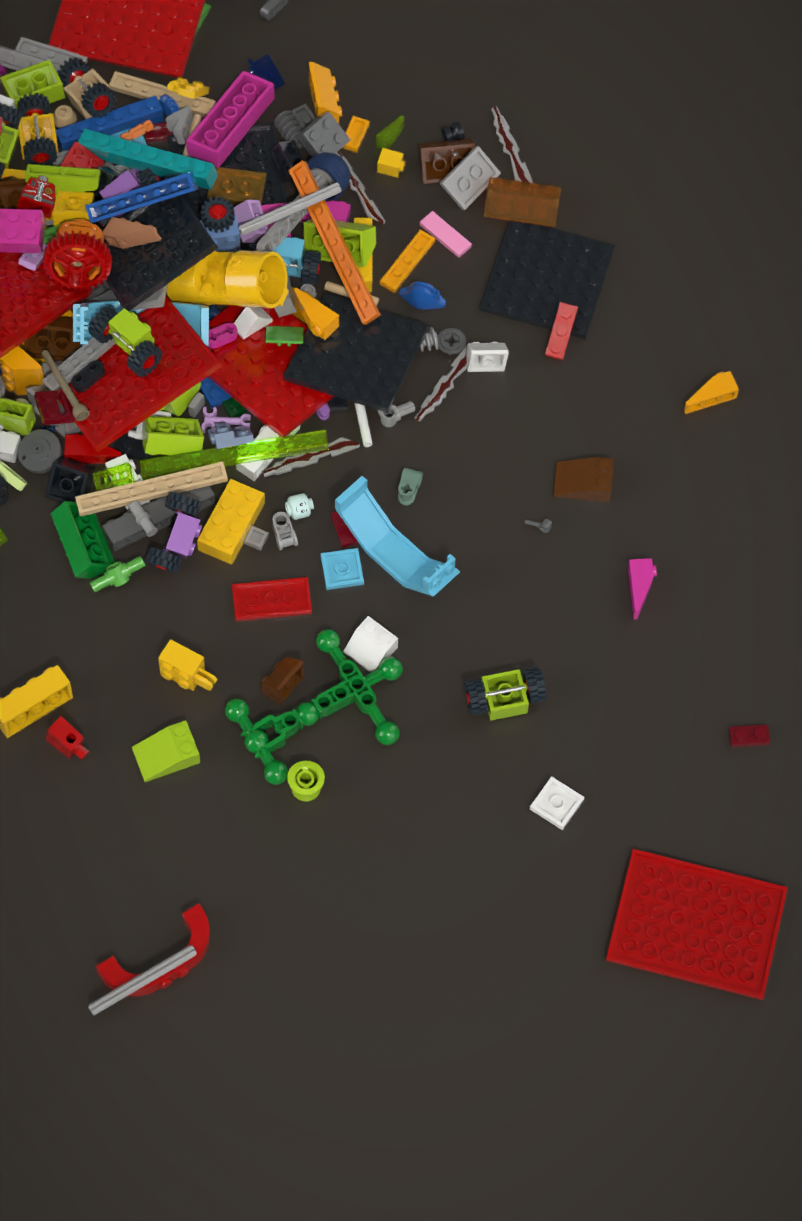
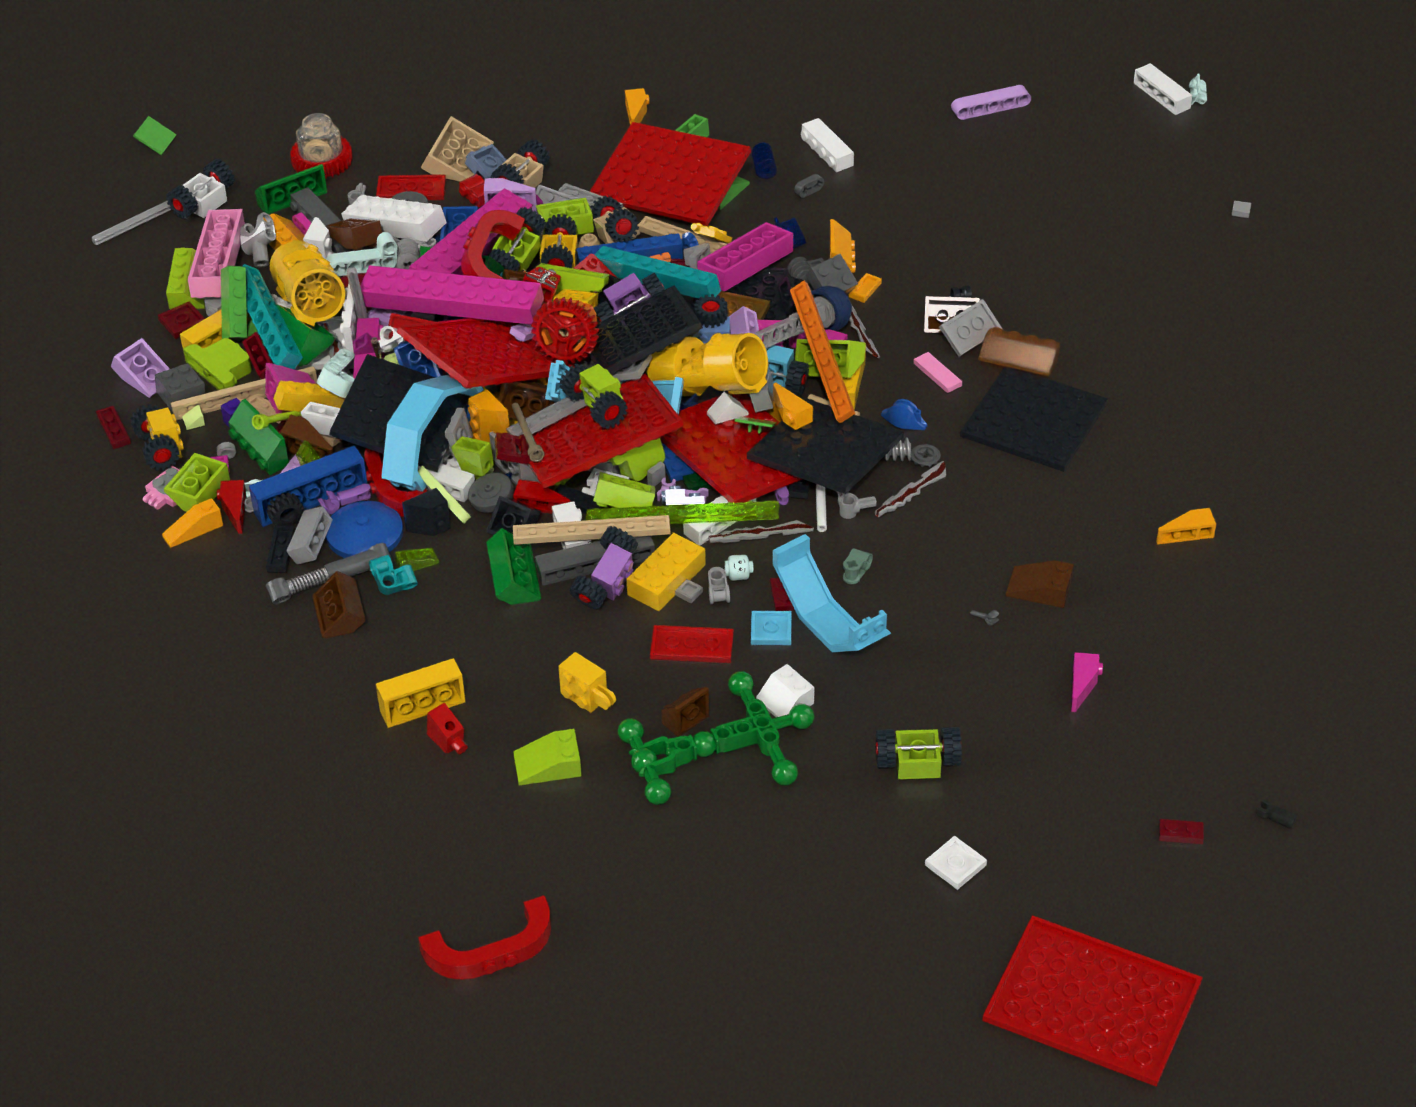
camera: 15 degrees right, 20 degrees down
(88, 376) = (552, 428): black plate -> none
(117, 574) = (539, 599): bright green pin -> none
(119, 469) = (561, 513): clear neon green slope -> none
(127, 234) = (620, 318): nougat slope -> none
(141, 197) = (641, 288): blue brick -> none
(142, 980) = (463, 955): light grey axle -> none
(143, 518) = (576, 552): light grey pin -> none
(221, 336) = (695, 416): dark pink beam -> none
(289, 208) = (783, 315): light grey axle -> none
(306, 780) = (687, 801): lime piece -> none
(389, 134) = (899, 289): clear neon green slope -> none
(390, 163) = (894, 310): yellow brick -> none
(407, 261) = (894, 389): light orange tile -> none
(486, 357) = (958, 470): white slope -> none
(510, 147) = (1015, 309): light grey sword -> none
(561, 331) = (1039, 458): plate -> none

